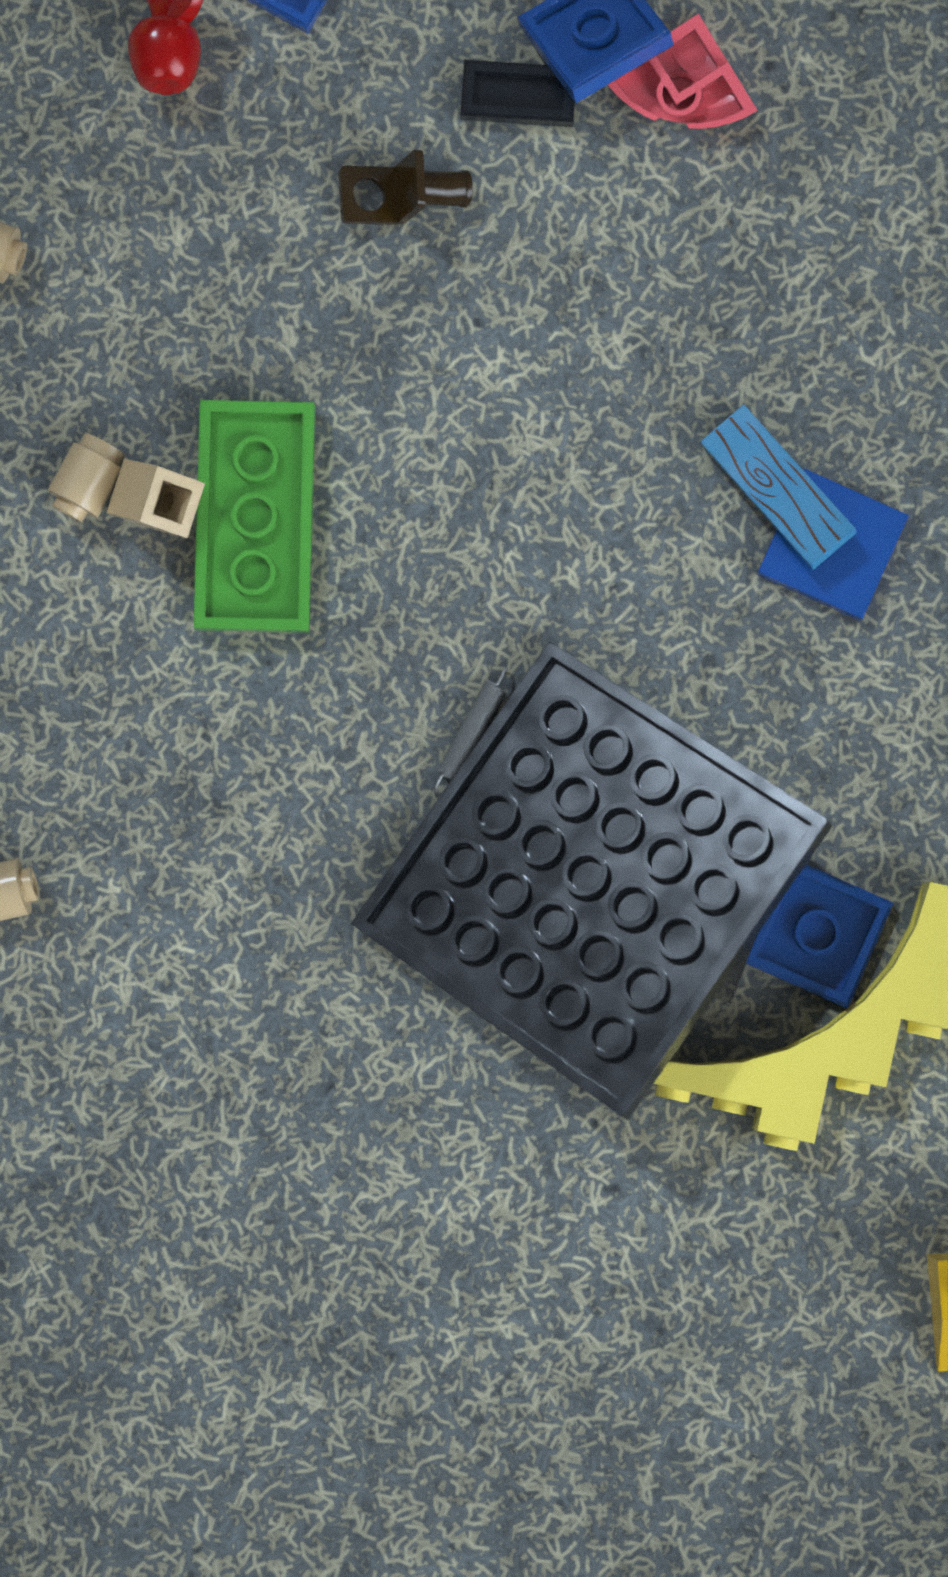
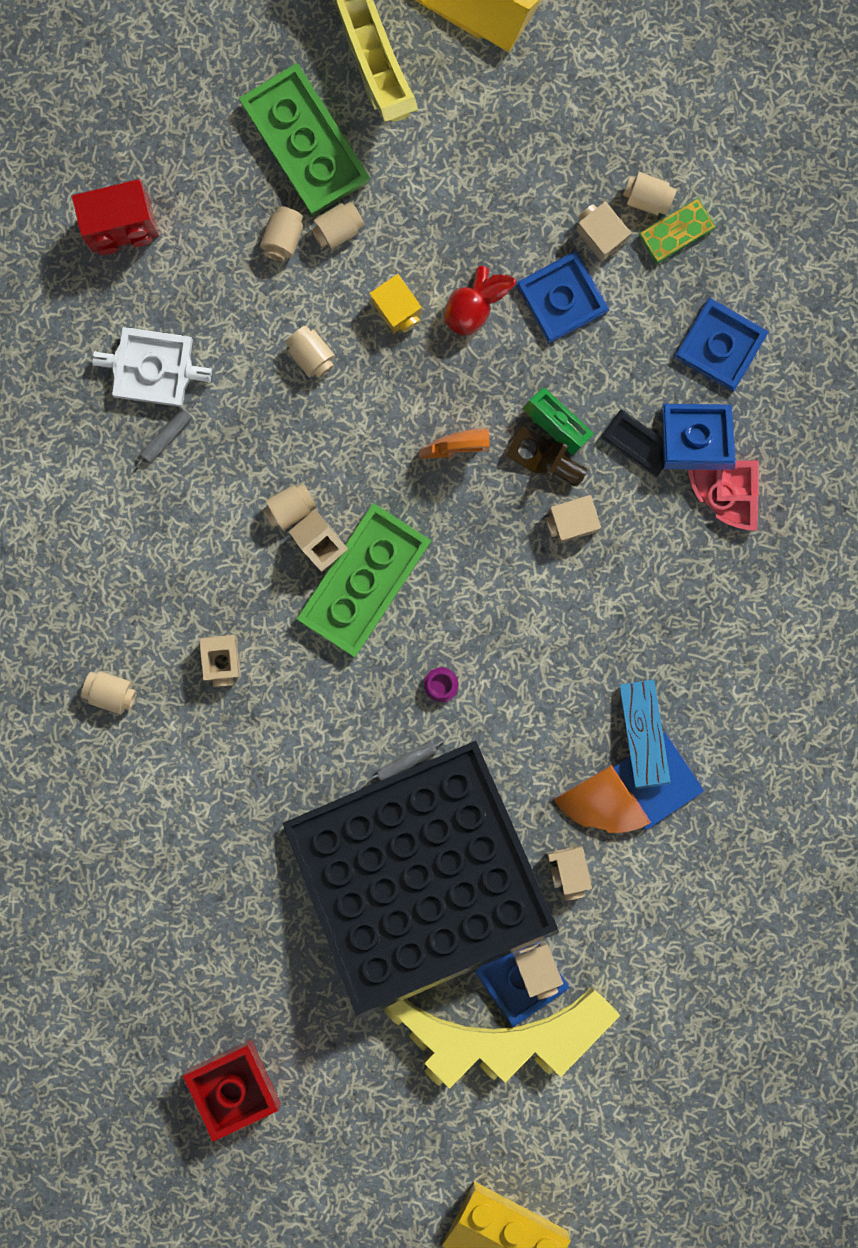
camera: 30 degrees right, 0 degrees up
(61, 105) = (396, 304): none -> yellow brick
(104, 738) = (210, 650): none -> tan brick
(271, 237) = (464, 441): none -> orange brick
(386, 129) = (557, 420): none -> green plate
(452, 595) = (441, 684): none -> magenta plate
(493, 252) = (573, 519): none -> tan brick
(513, 1337) = (232, 1090): none -> red brick
(780, 619) = (603, 804): none -> orange brick
(794, 741) = (570, 872): none -> tan brick
(835, 903) = (538, 970): none -> tan brick

